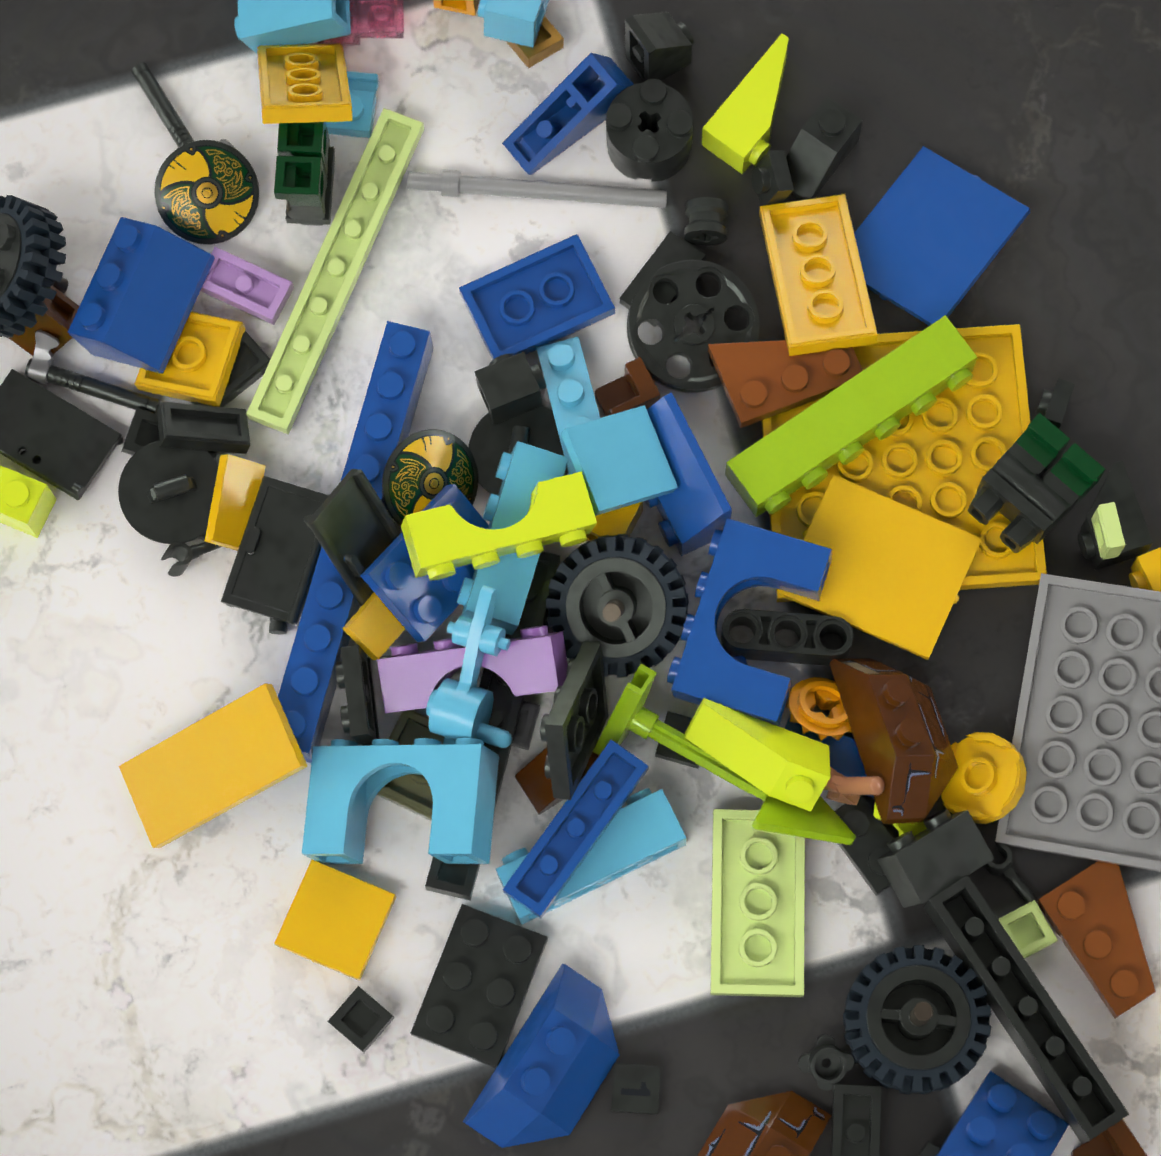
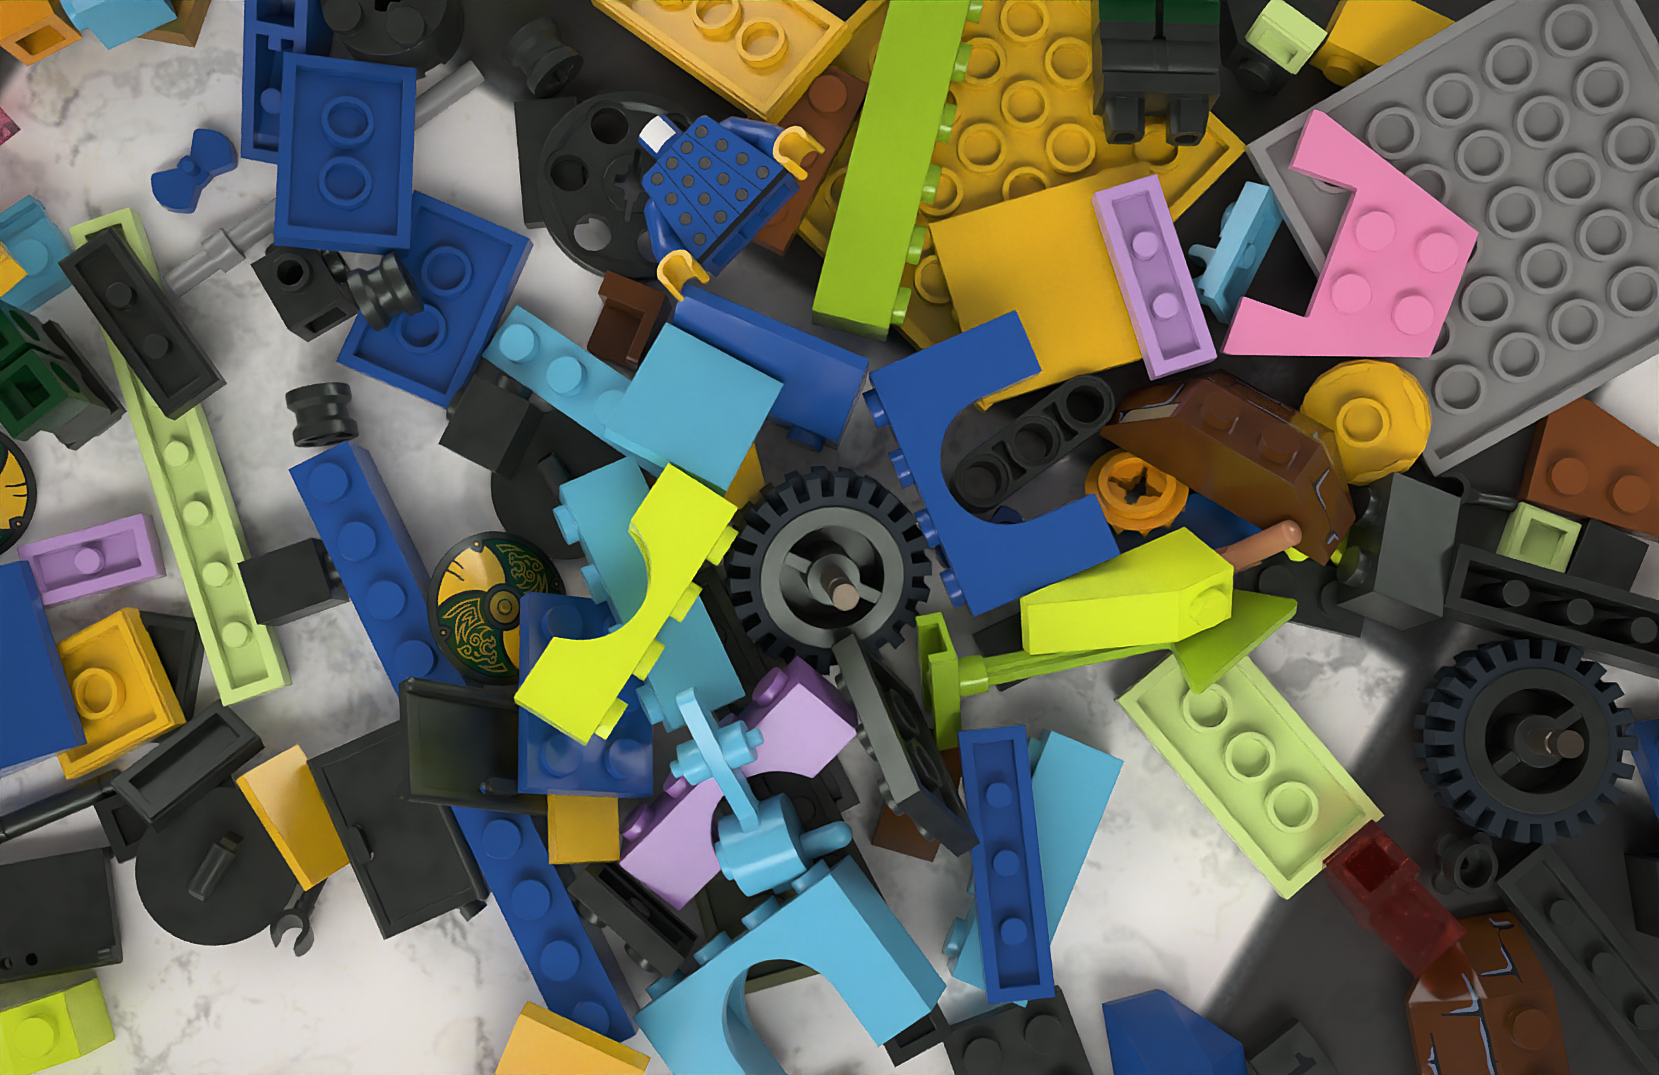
camera: 50 degrees left, 10 degrees up
(337, 382) = (292, 583): none -> pearl dark grey brick
(378, 187) = (142, 323): none -> pearl dark grey tile
(427, 308) = (321, 414): none -> pearl dark grey wheel
(478, 237) = (307, 288): none -> pearl dark grey brick
(487, 129) = (181, 187): none -> blue piece
(515, 272) = (385, 291): none -> pearl dark grey wheel
(557, 188) = (345, 155): none -> blue plate
(728, 361) = (715, 190): none -> blue torso
(766, 1035) = (1384, 896): none -> clear red brick
(926, 599) = (1153, 277): none -> lavender plate
(990, 632) = (1245, 238): none -> medium azure plate
(1055, 702) = (1386, 268): none -> bright pink wing
(1056, 970) = (1606, 555): none -> pearl dark grey tile

